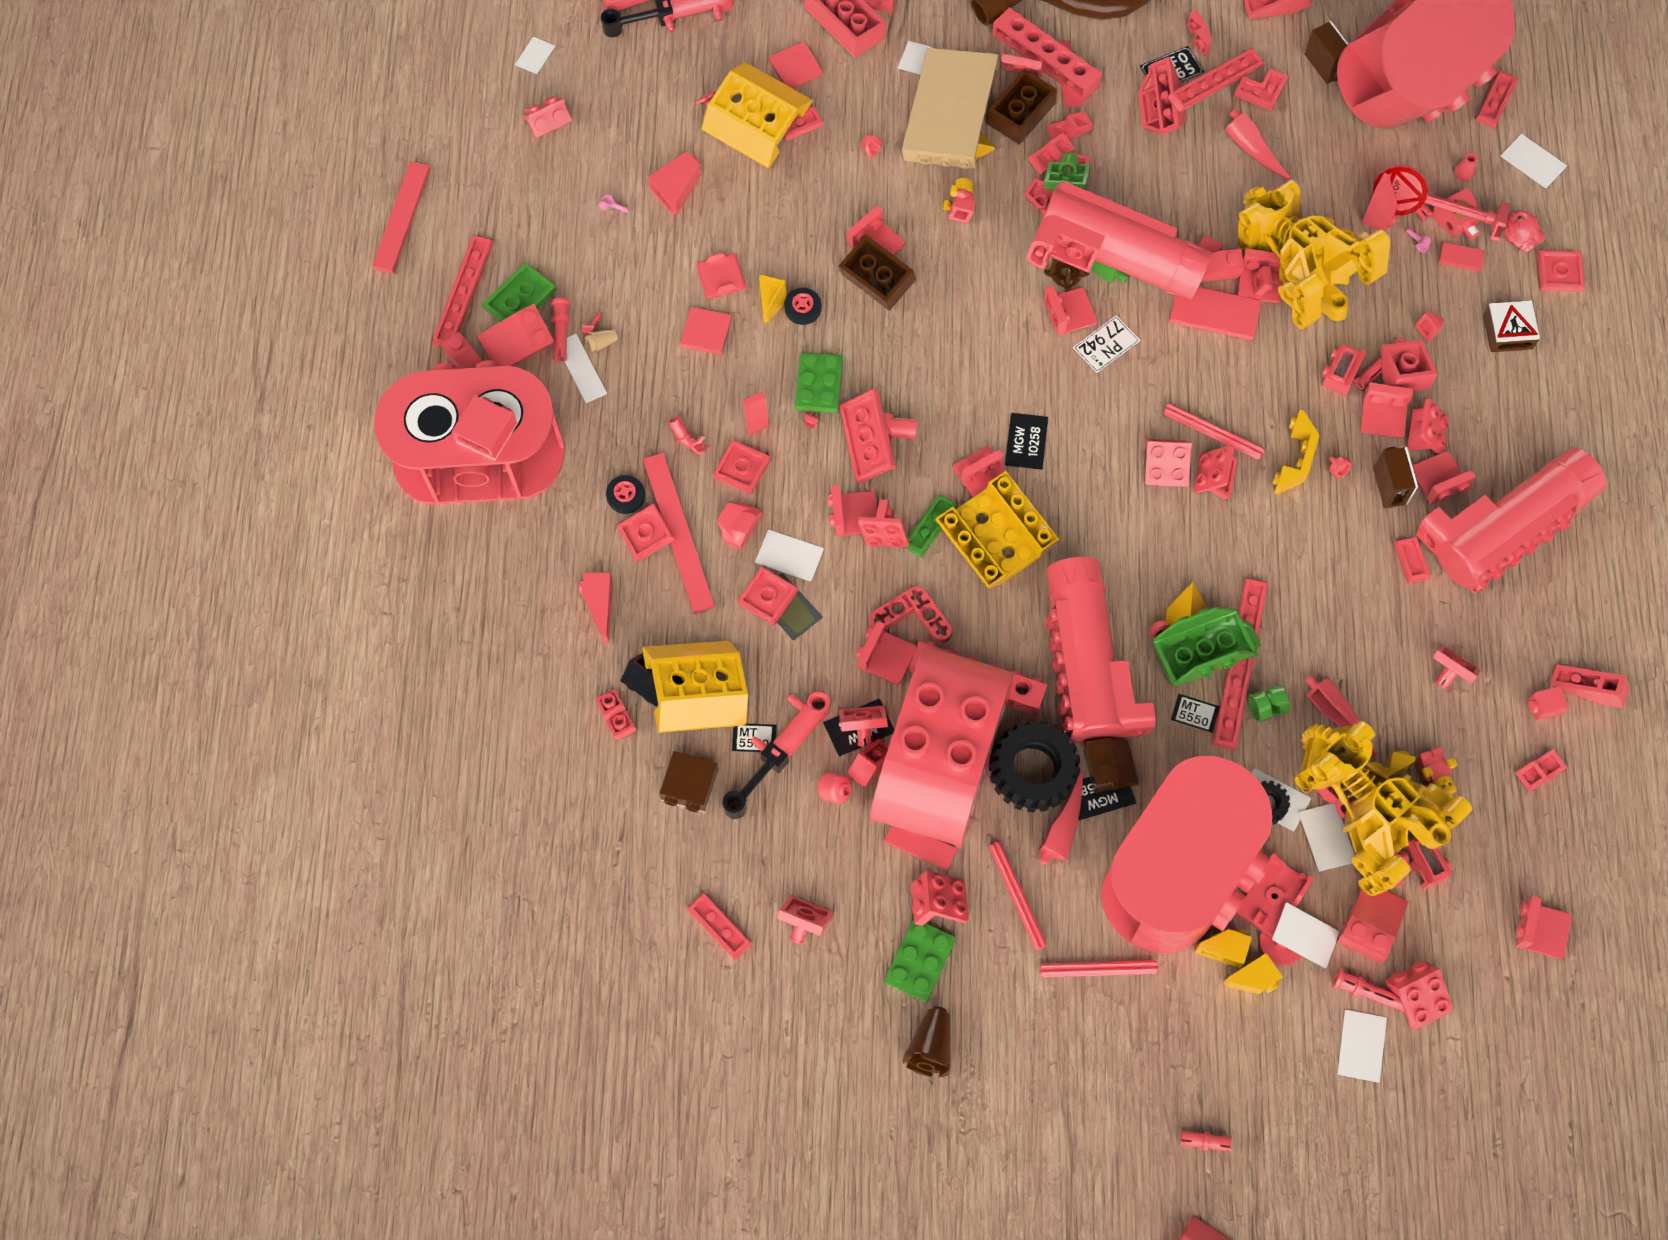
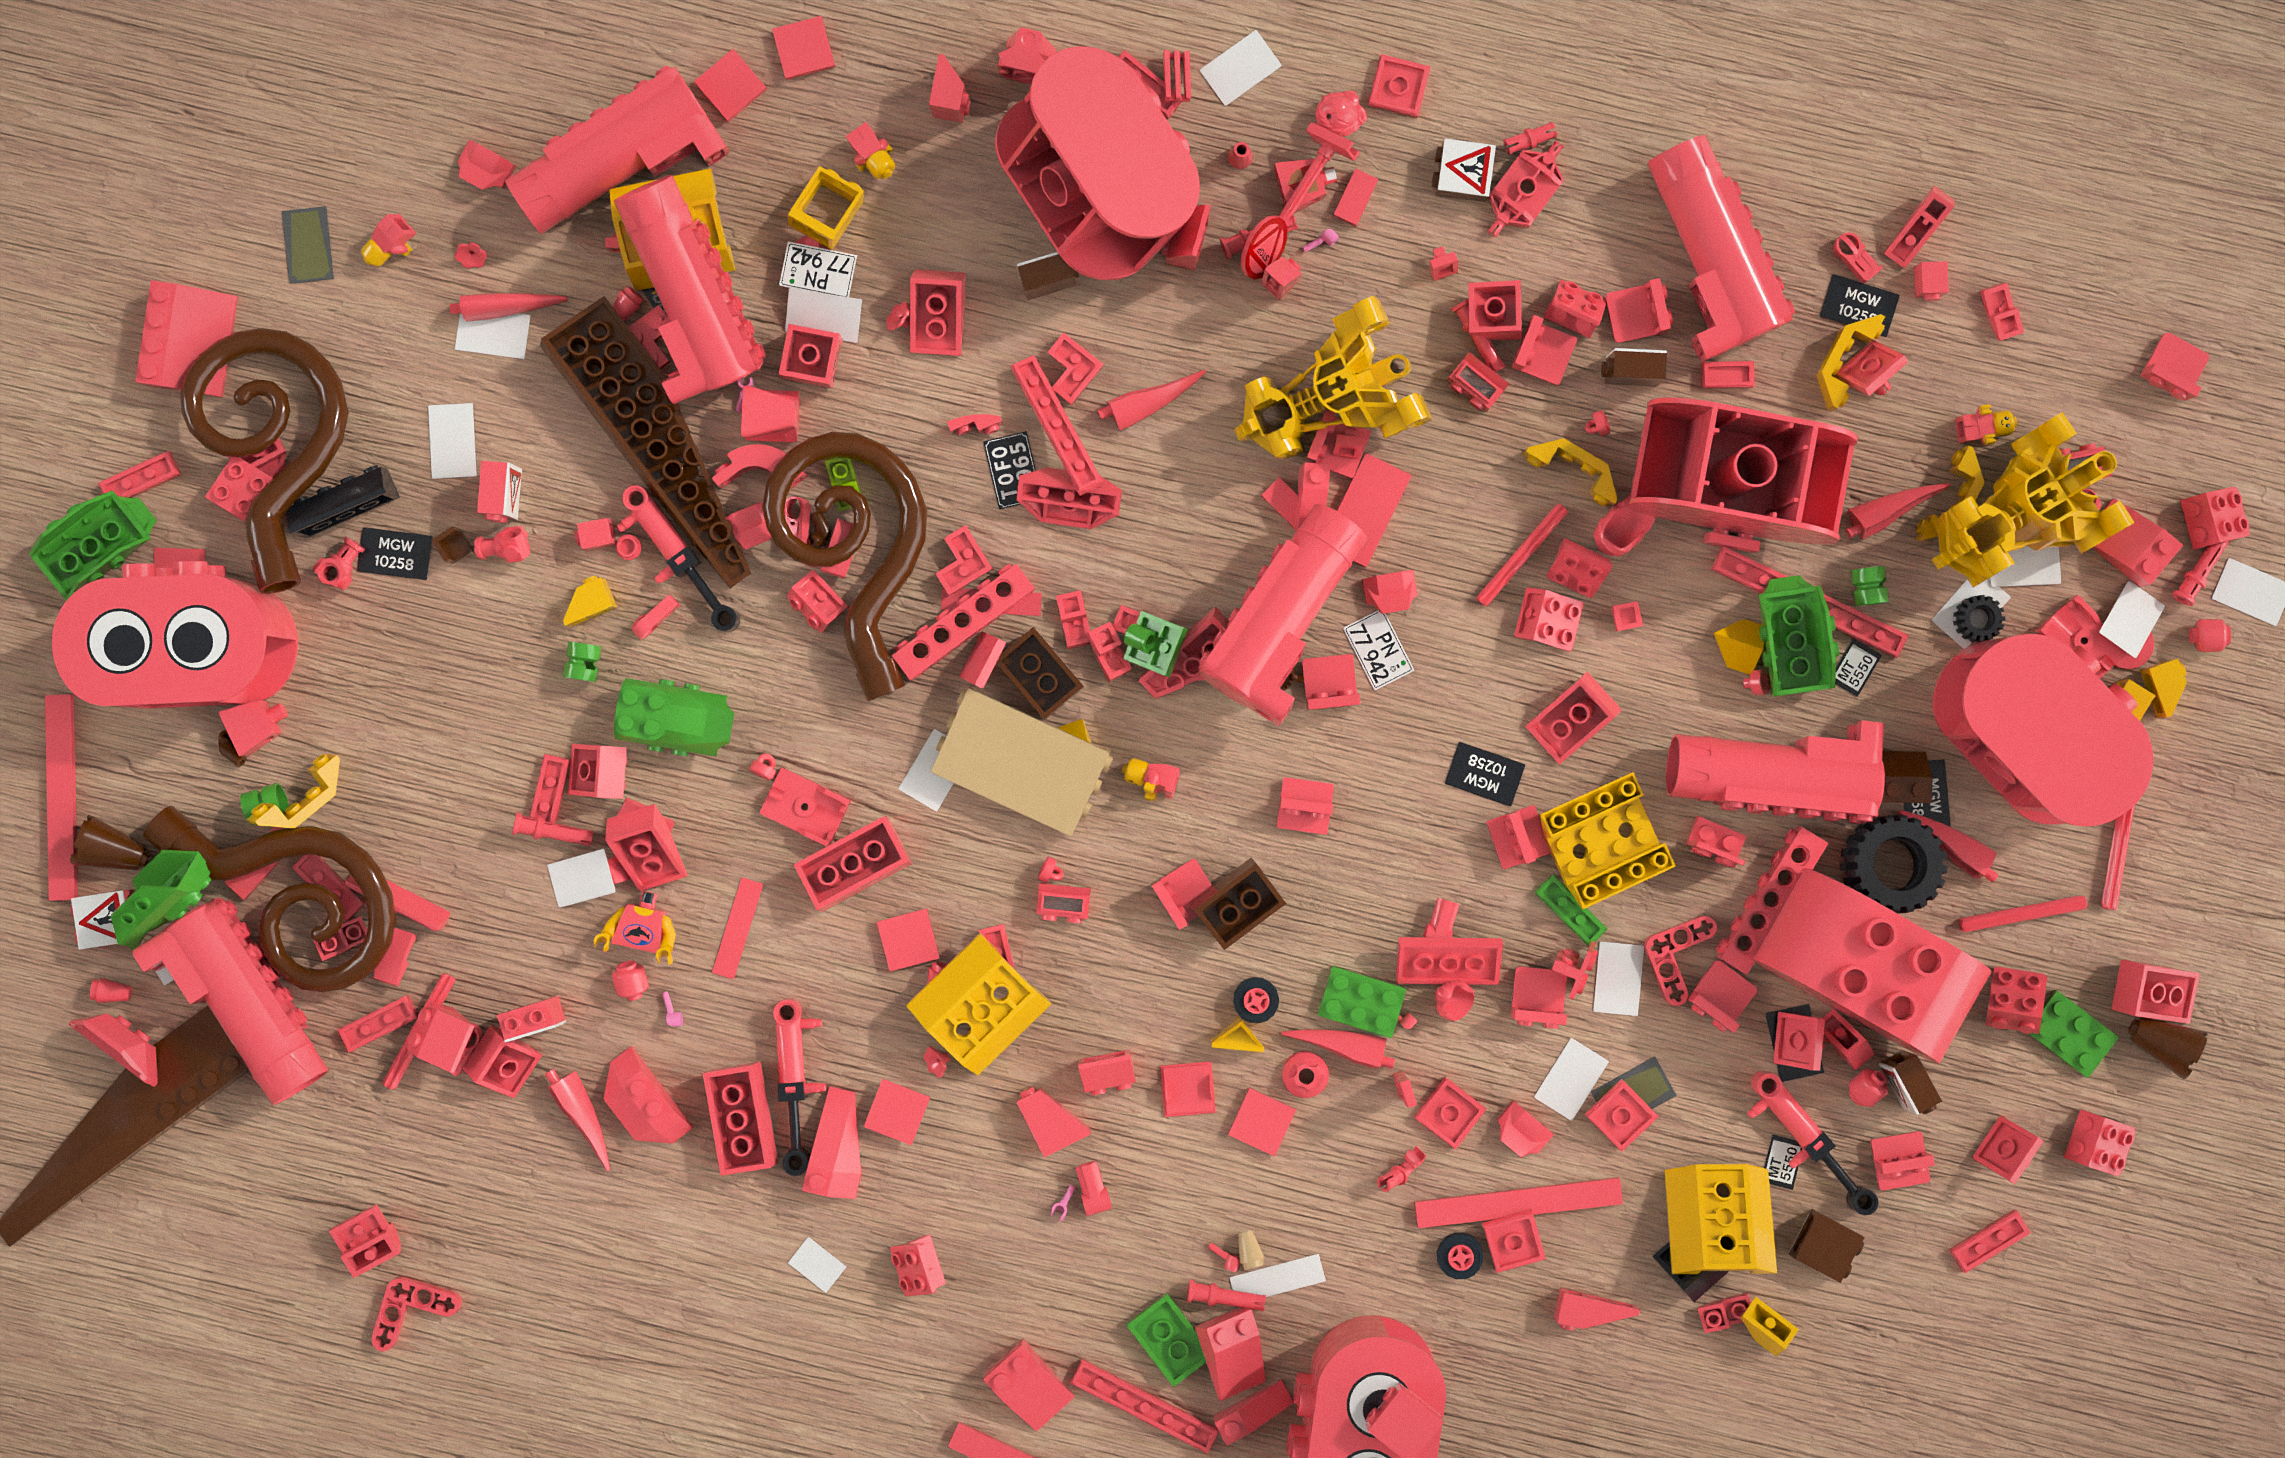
camera: 80 degrees left, 20 degrees up
(466, 205) = (1028, 1385): none -> coral slope
(609, 743) = (1768, 1327): none -> yellow slope
(622, 45) = (835, 1156): none -> coral wedge
(624, 223) = (1095, 1195): none -> coral piece
(662, 79) = (897, 1111): none -> coral piece
(724, 209) = (1107, 1071): none -> coral slope
(750, 363) = (1298, 1062): none -> coral piece
(775, 832) = (1901, 1160): none -> coral bracket
(780, 389) = (1354, 1046): none -> coral piece
(827, 1005) = (2100, 1143): none -> coral bracket
(836, 446) = (1454, 1000): none -> coral hair
(846, 818) = (1910, 1082): none -> reddish brown piece
(850, 159) = (1063, 902): none -> coral window
(881, 575) = (1618, 978): none -> white sticker
(966, 311) = (1305, 805): none -> coral bracket
(976, 1026) = (2155, 991): none -> coral slope
(1015, 625) = (1716, 840): none -> coral bracket
(1092, 50) = (969, 564): none -> coral plate
(1092, 493) = (1573, 718): none -> coral slope
(1158, 340) = (1390, 591): none -> coral slope
(1186, 518) = (1627, 616): none -> coral plate
(1261, 498) = (1621, 529): none -> coral hair
(1274, 594) = (1743, 542): none -> coral plate
(1311, 1007) = (2210, 635): none -> coral head
(1338, 554) = (1742, 470): none -> coral brick
(1390, 141) = (1188, 240): none -> coral slope
(1488, 657) = (1833, 389): none -> yellow slope
(1495, 373) = (1520, 208): none -> coral plate
(1496, 112) = (1176, 56): none -> coral tile
(1505, 655) = (1855, 301): none -> black sticker
(1545, 643) = (1860, 262): none -> coral piece
(1554, 370) = (1530, 138): none -> coral pin

